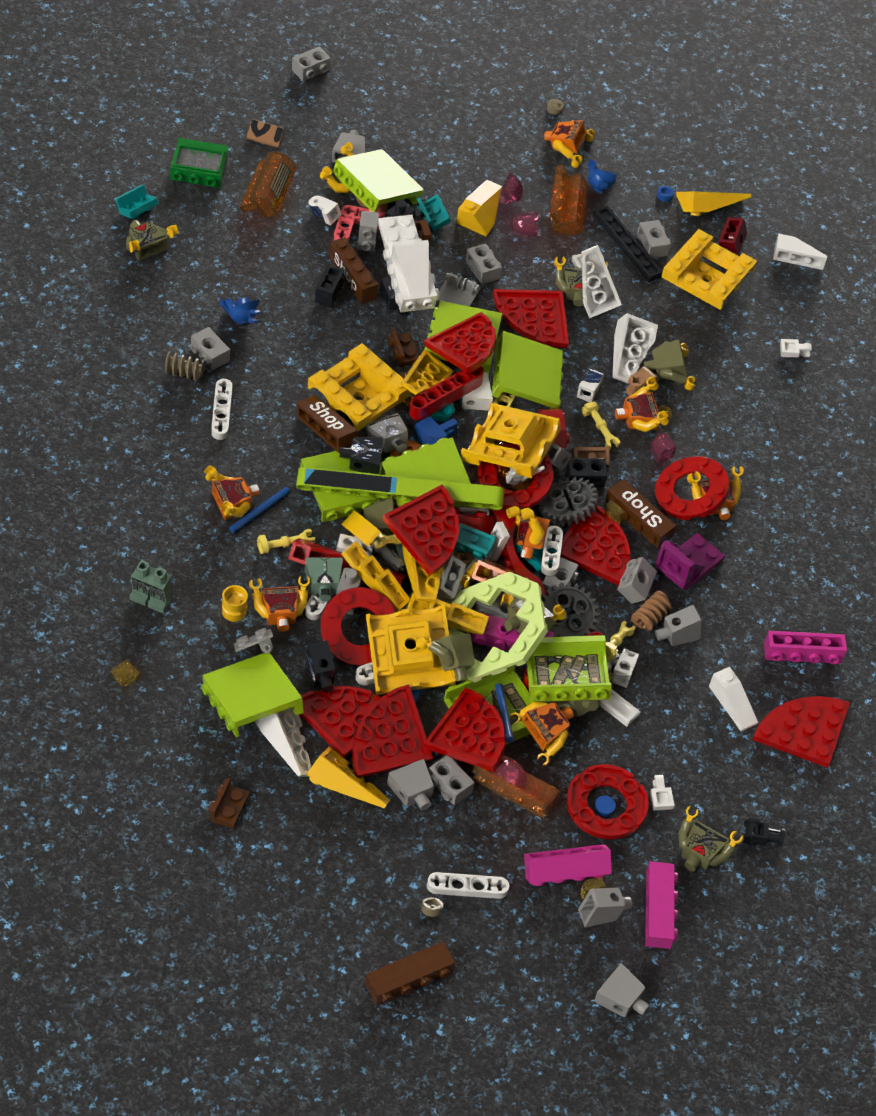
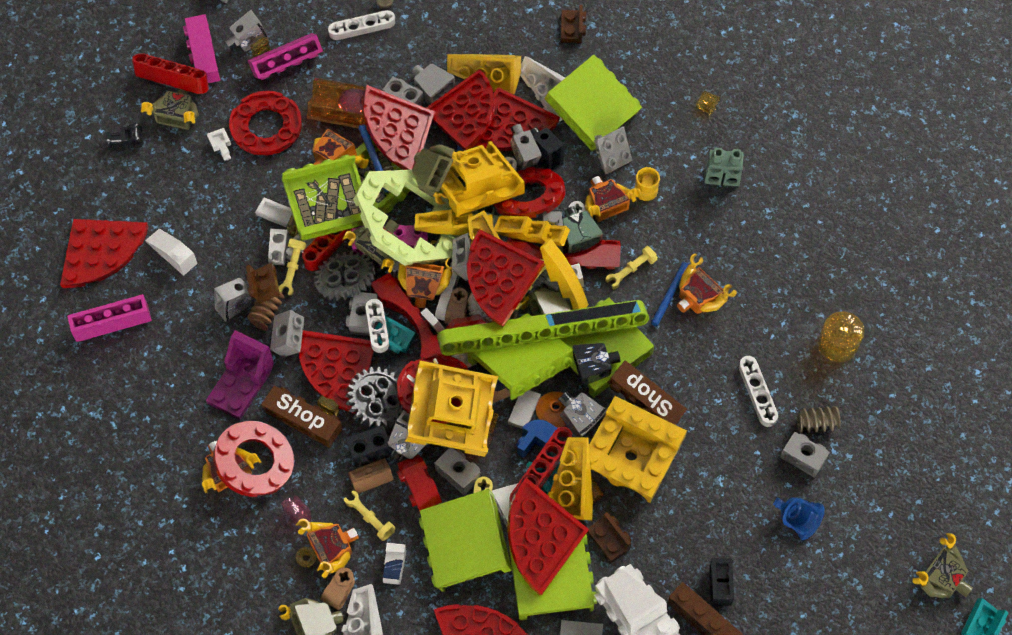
camera: 170 degrees right, 10 degrees up
(126, 415) = (841, 336): none -> clear yellow wheel
(345, 674) = (524, 147): none -> light grey torso
(474, 542) = (454, 302): teal bracket -> none
(531, 530) = (403, 331): torso -> none
(604, 806) = (267, 121): blue tile -> none
(651, 619) = (262, 282): none -> reddish brown bracket
(713, 881) = (170, 73): none -> red beam

